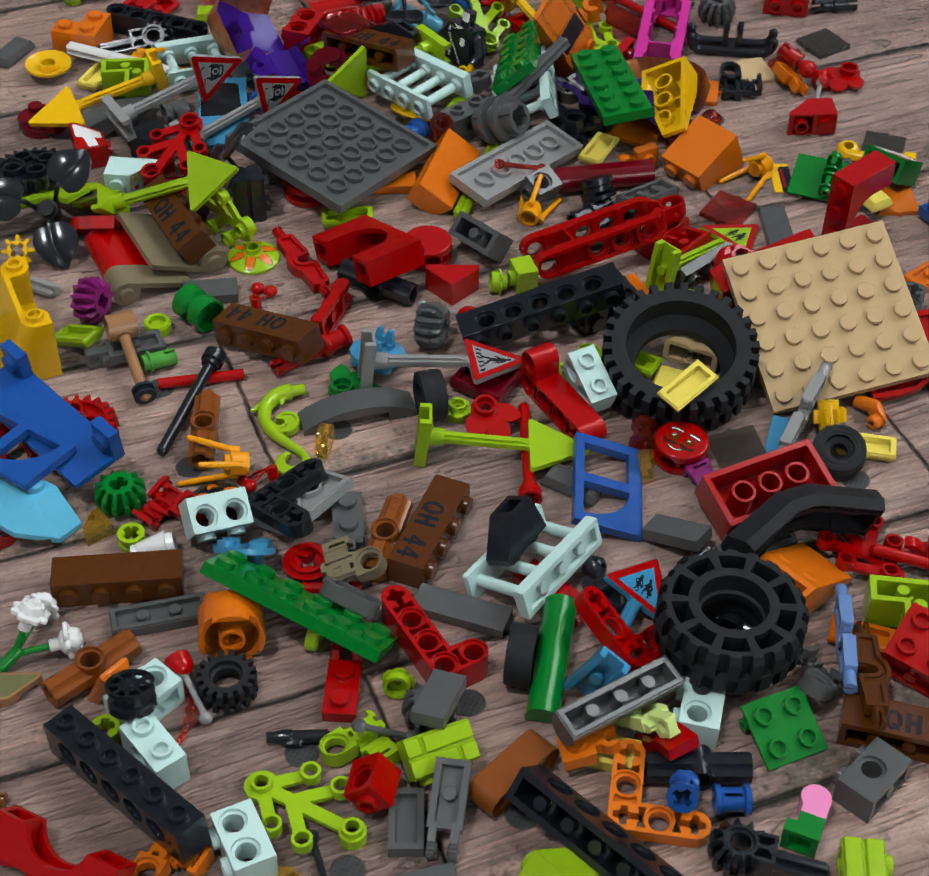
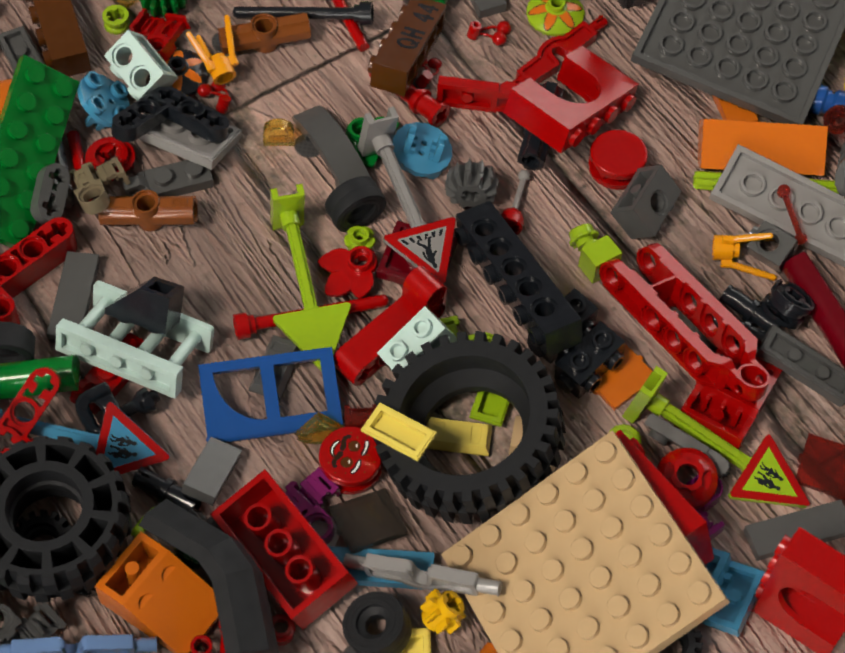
camera: 75 degrees right, 15 degrees up
(159, 541) = (100, 37): white cone -> none
(289, 422) = (297, 103): lime plant -> none
(332, 219) = (654, 85): lime tile -> none
(429, 532) = (166, 246): reddish brown brick -> none
(451, 281) = (562, 194): red slope -> none

